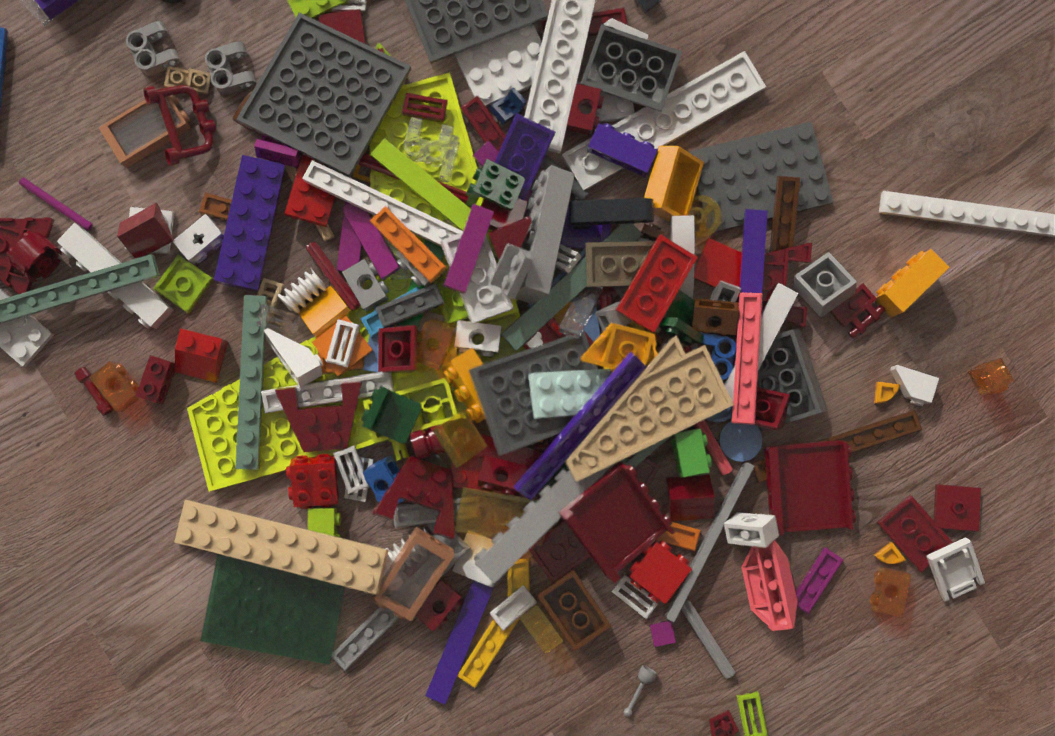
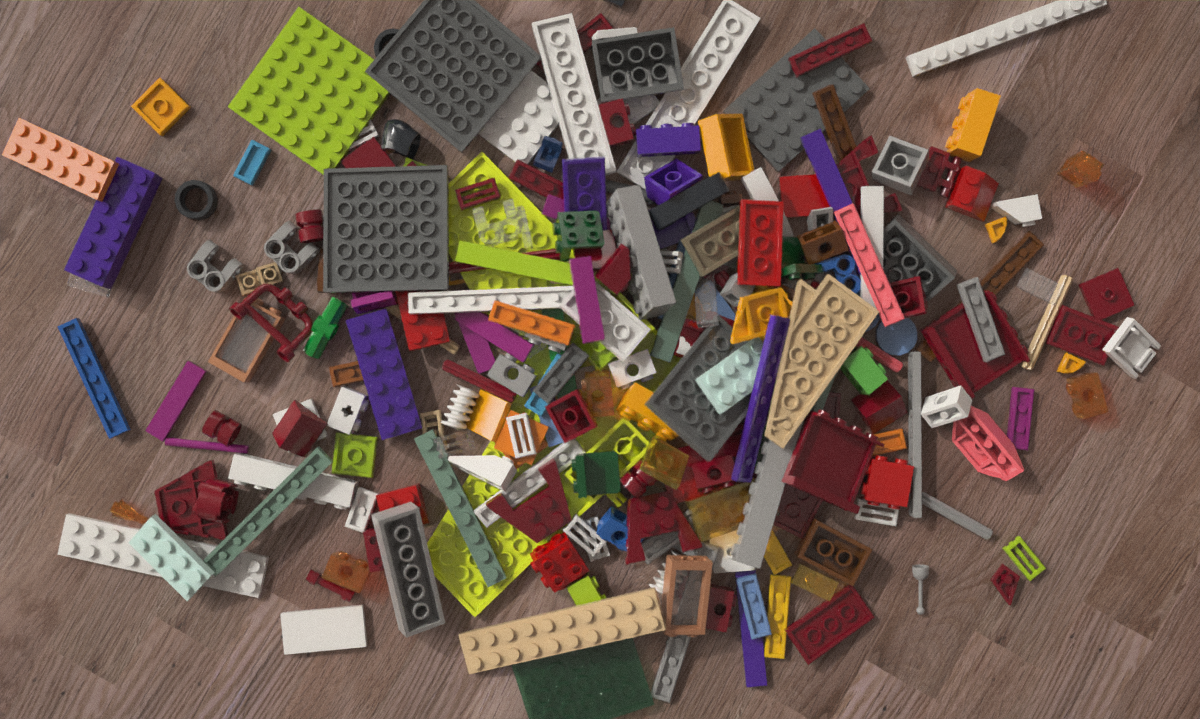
camera: 30 degrees left, 5 degrees up
(51, 149) = (176, 400): none -> magenta tile
(65, 428) = (323, 629): none -> white tile
(76, 193) = (220, 427): none -> dark red wheel
(161, 336) = (361, 509): none -> white plate
(171, 410) = (408, 569): none -> light grey brick
(221, 154) = (325, 328): none -> green piece
(260, 54) = (310, 225): none -> dark red wheel
(382, 23) = (400, 138): none -> black piece
(472, 621) = (753, 606): none -> medium blue tile
(511, 270) = (634, 299): light grey bracket -> none
(513, 607) = (781, 576): white tile -> none
(534, 677) = (829, 623): none -> dark red tile
(604, 185) = (670, 181): none -> dark purple slope
(662, 633) = (915, 531): magenta tile -> none
(712, 204) = (768, 148): clear yellow piece -> none
(814, 147) = (830, 50): none -> dark red tile
(826, 466) = (980, 319): none -> light grey tile
(879, 347) = (972, 193): none -> red slope
(888, 503) = (1046, 324): none -> tan axle
(898, 466) = (1040, 286): none -> clear tile

